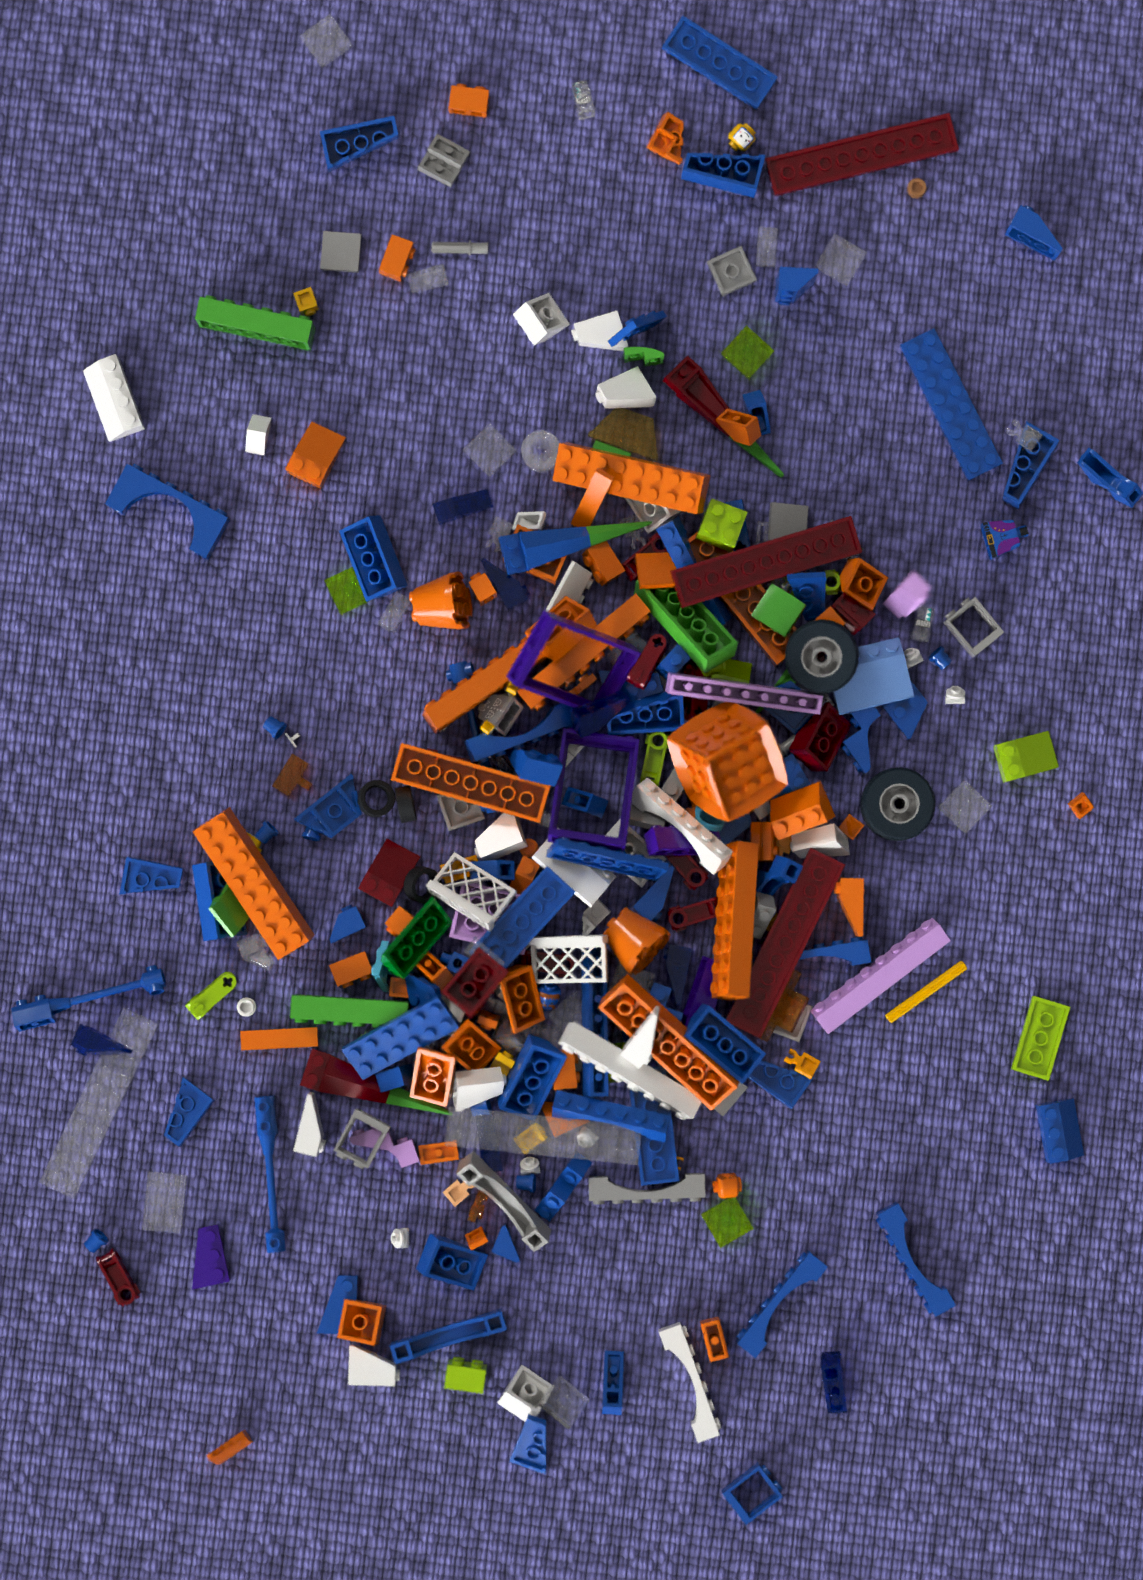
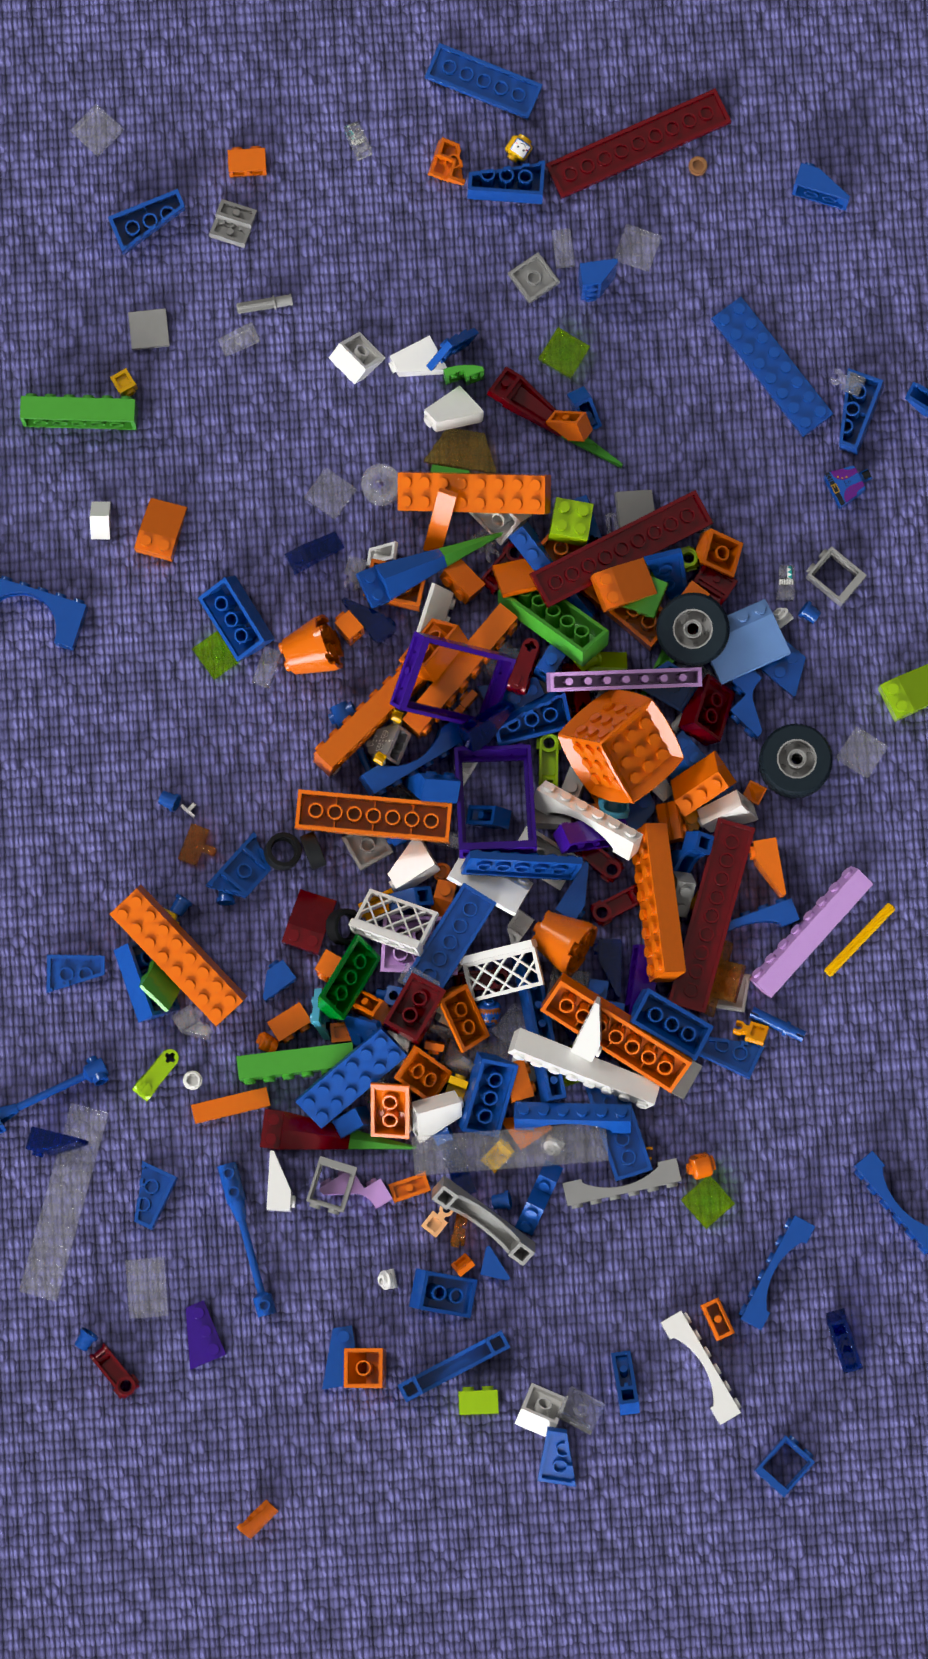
camera: 10 degrees left, 5 degrees down
(325, 984) = (267, 1042): none -> orange arm
(370, 1368) = (382, 1414): white slope -> none
(397, 257) = (205, 325): orange brick -> none
(529, 1165) = (502, 1183): white plate -> none
(761, 599) = (623, 584): none -> orange slope
(828, 1059) = (777, 1024): none -> blue pin
(907, 596) = (764, 554): lavender brick -> none
(955, 695) = (831, 646): white plate -> none

